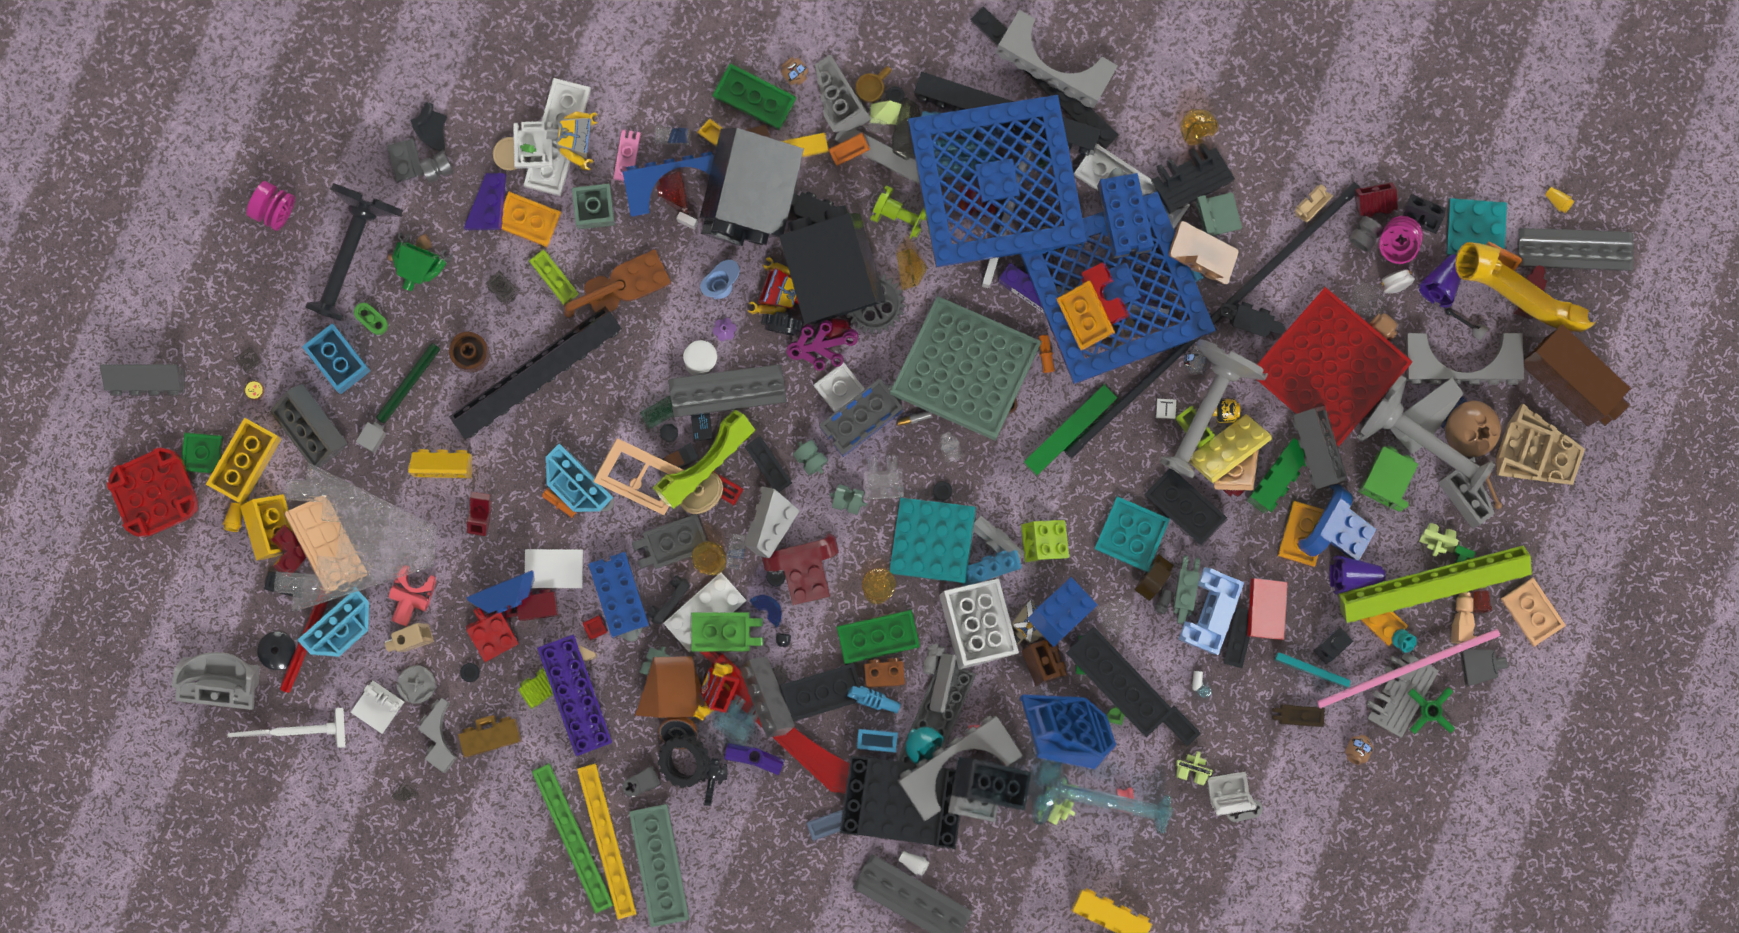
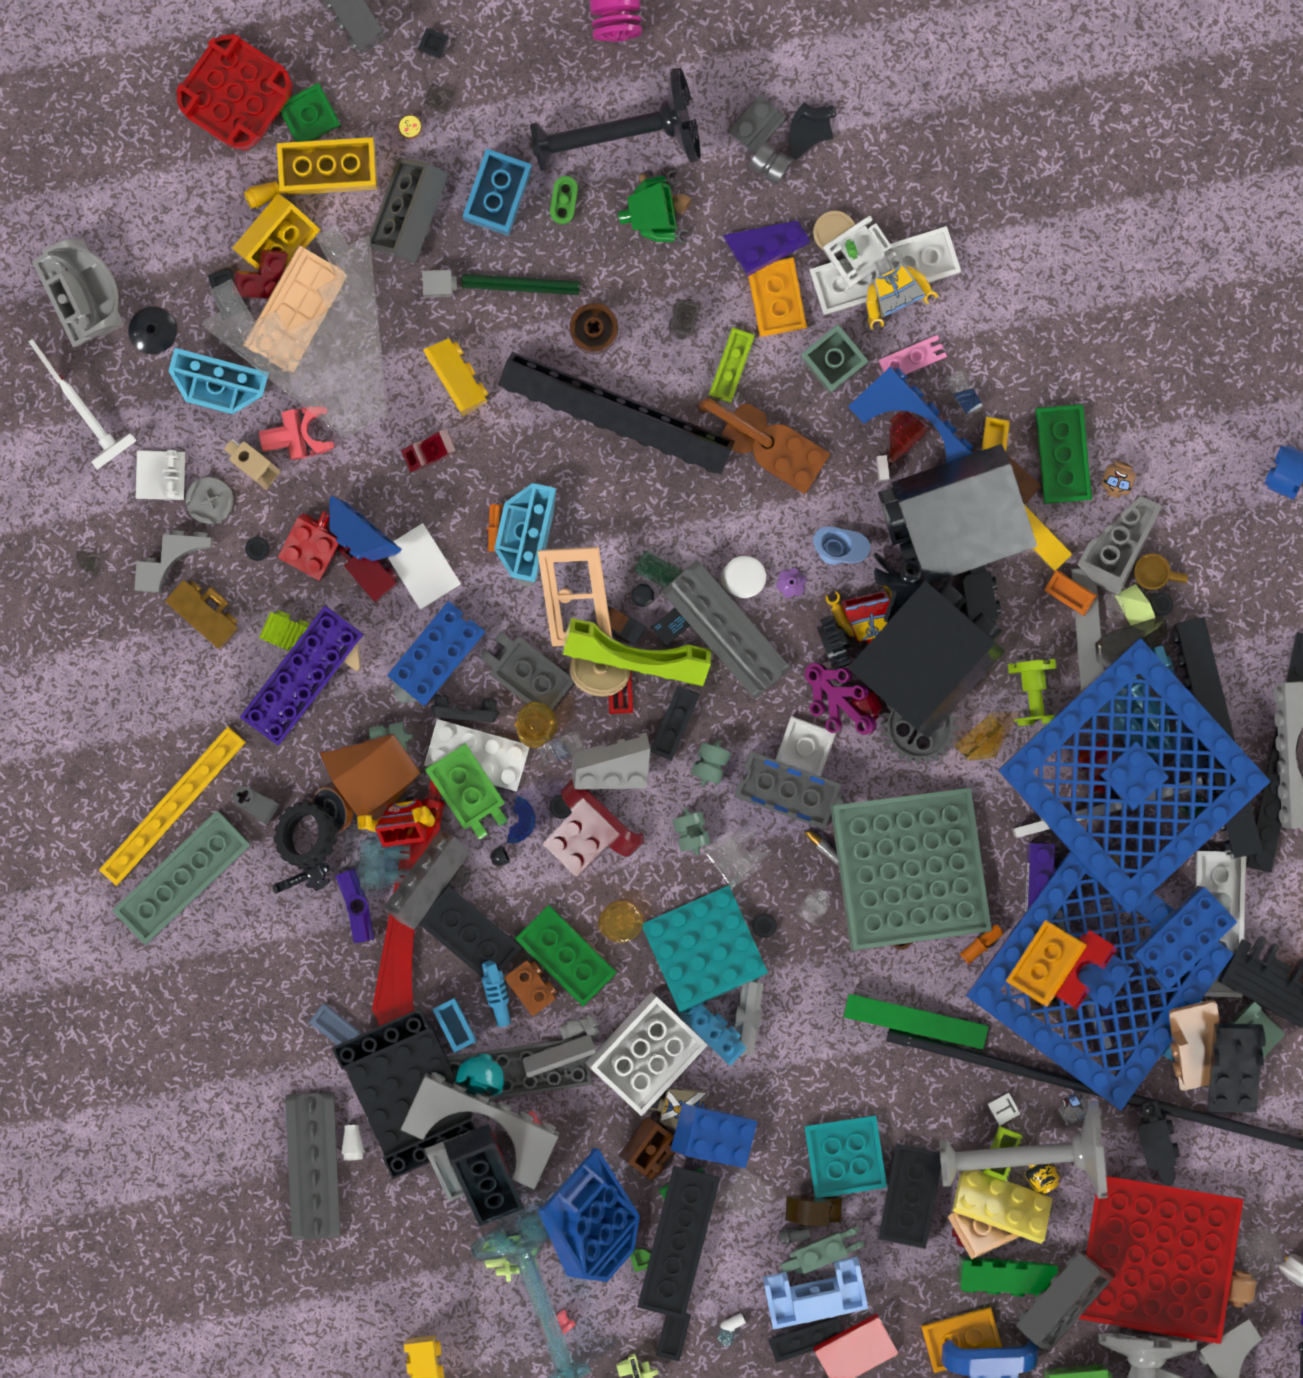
camera: 55 degrees right, 5 degrees up
(209, 339) = (433, 43): none -> black plate
(300, 651) = (165, 357): red axle -> none
(572, 838) = (153, 768): bright green tile -> none
(594, 627) = (387, 649): red tile -> none
(771, 253) = (901, 583): none -> black animal
(1044, 540) = (779, 1068): lime bracket -> none
(1234, 237) = (1235, 1067): none -> black hinge

